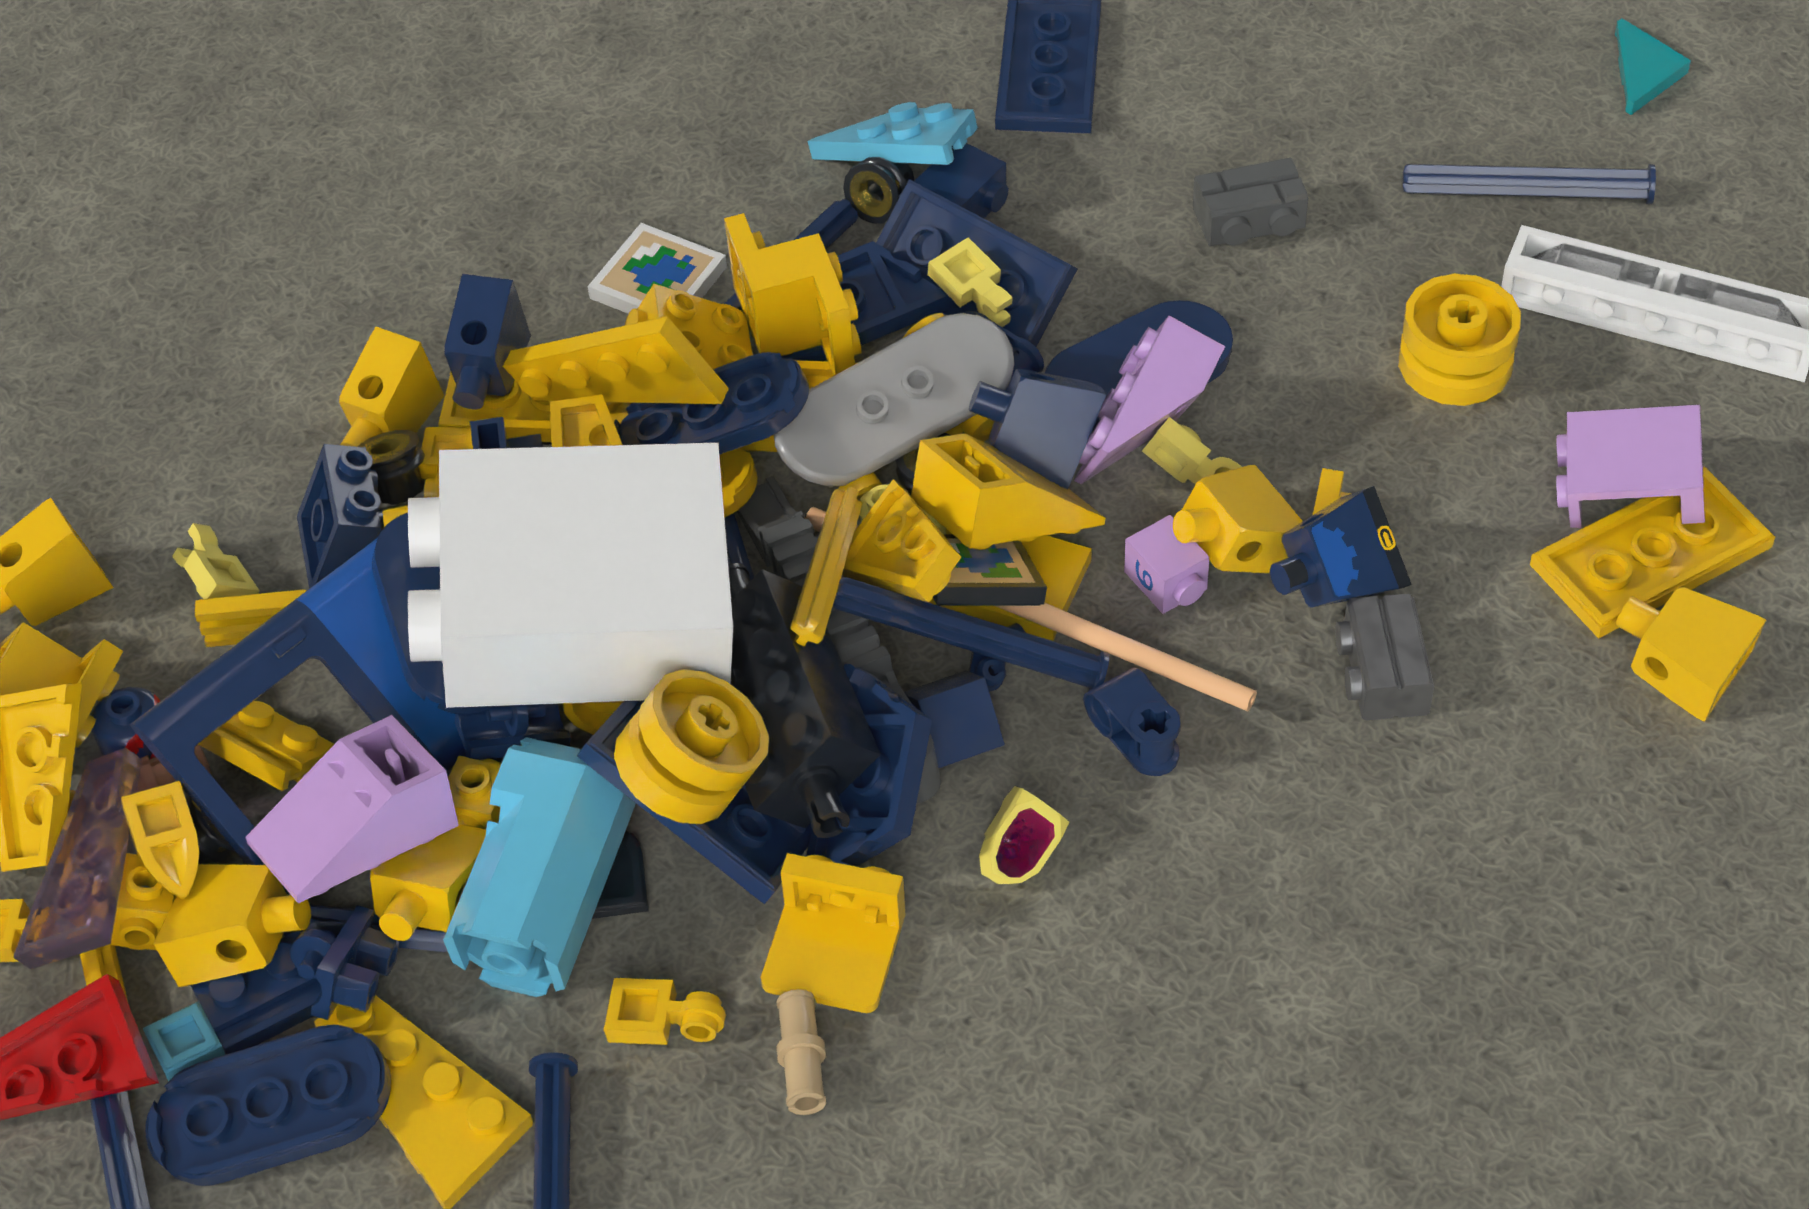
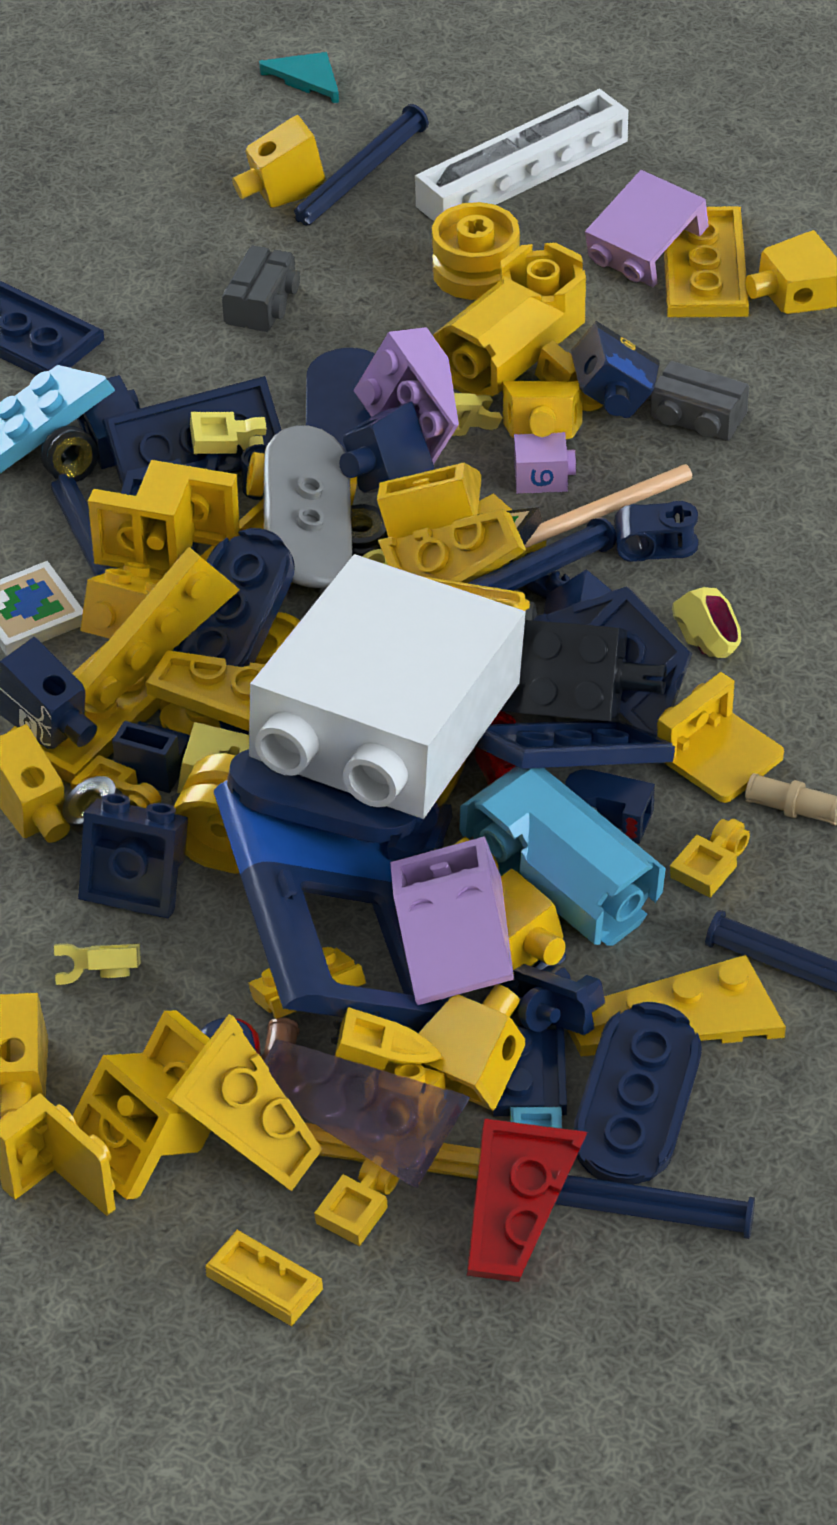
camera: 60 degrees left, 5 degrees down
(234, 617) = (174, 949): yellow tile -> none
(687, 900) = (619, 799): none -> dark blue leg
(691, 746) = (563, 706): yellow wheel -> none
(1379, 429) = (509, 324): none -> yellow brick
(1448, 117) = (282, 165): none -> yellow torso

